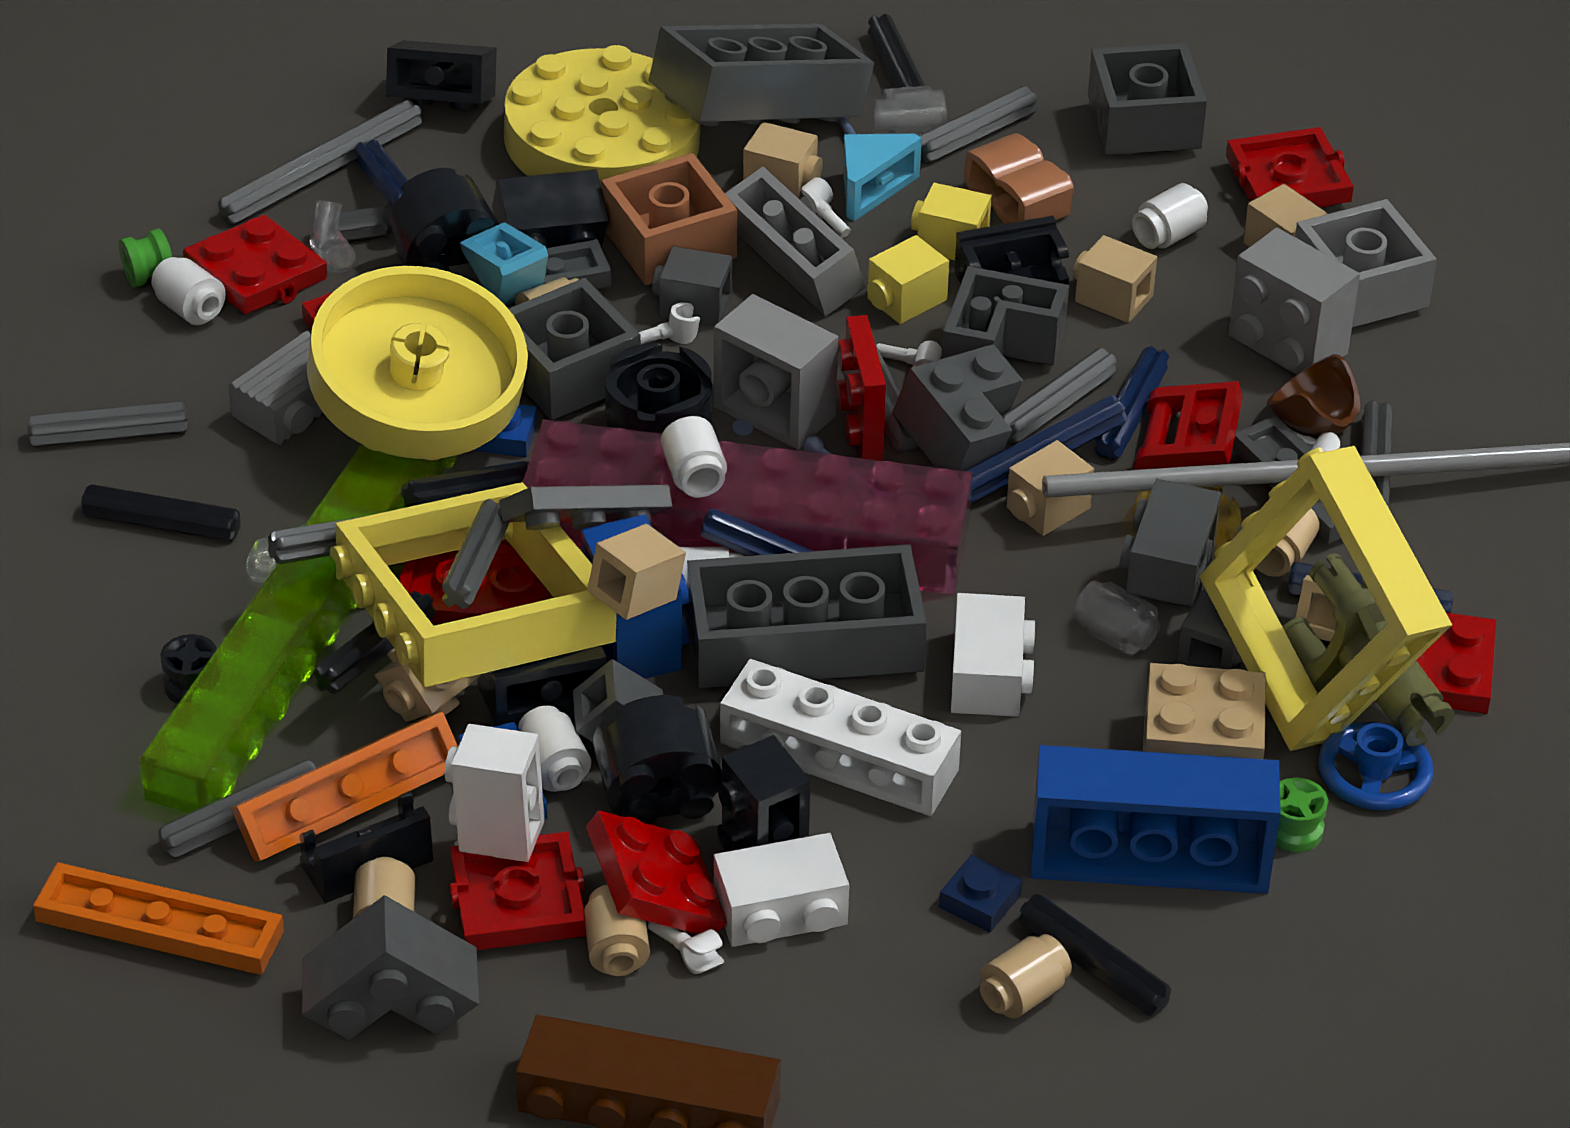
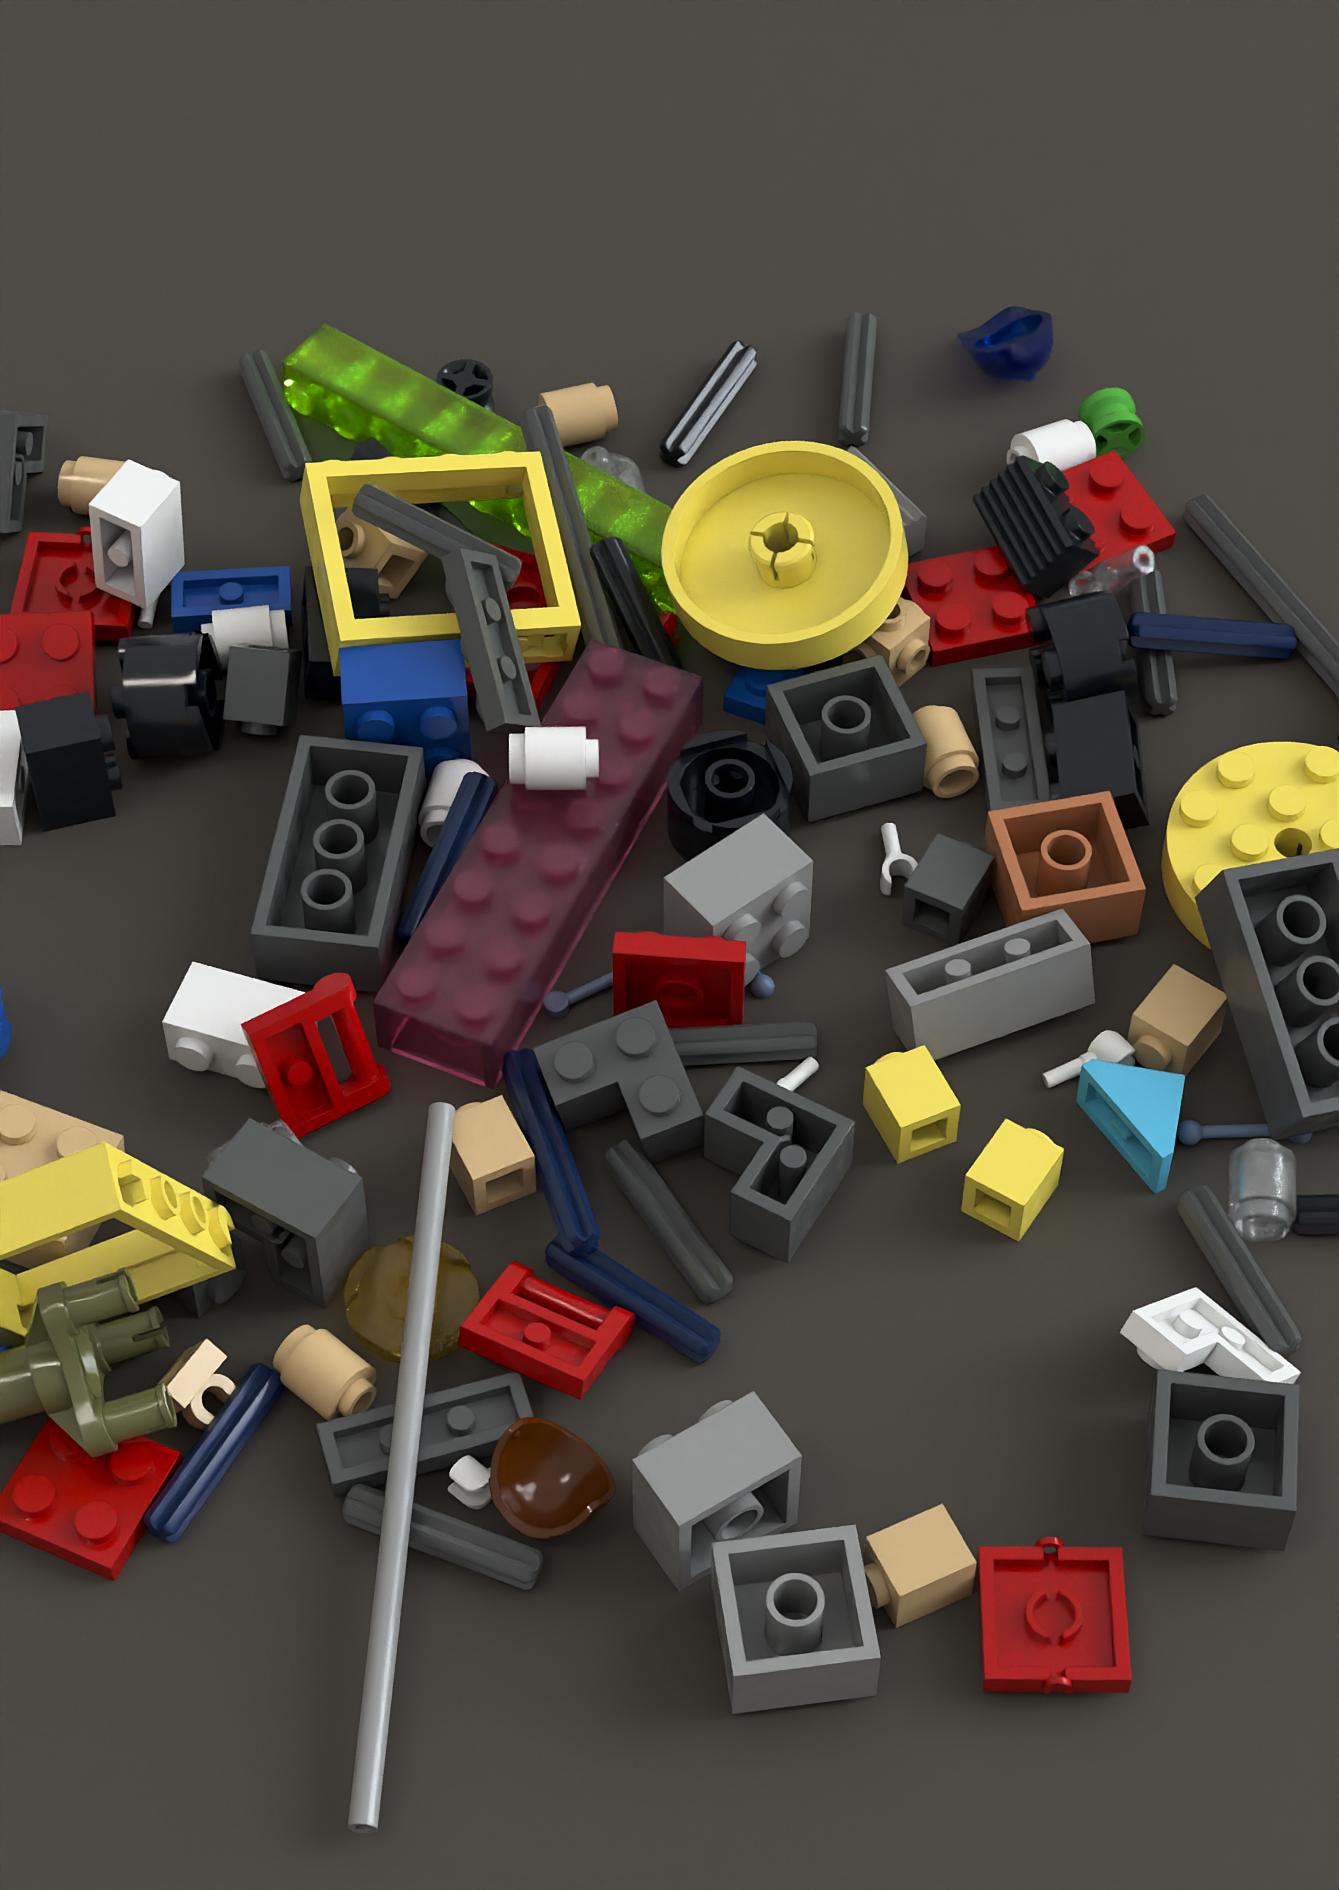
camera: 105 degrees right, 10 degrees up
(54, 321) = (1011, 344): none -> clear blue piece
(159, 918) = (154, 342): orange plate -> none
(207, 585) = (581, 412): none -> tan brick
(300, 267) = (1036, 525): none -> black brick
(345, 786) = (258, 479): orange plate -> none
(400, 837) = (187, 465): black hinge -> none
(506, 261) = (989, 687): medium azure slope -> none
(636, 571) = (339, 640): tan brick -> none
(843, 736) = (168, 871): white brick -> none
(1017, 248) = (923, 1228): black hinge -> none
(1017, 574) = (297, 1064): none -> red plate
(1018, 180) = (1082, 1274): nougat brick -> none
(1060, 113) = (1195, 1331): none -> white plate
(1115, 278) = (858, 1330): tan brick -> none
(1170, 216) = (975, 1433): white brick -> none

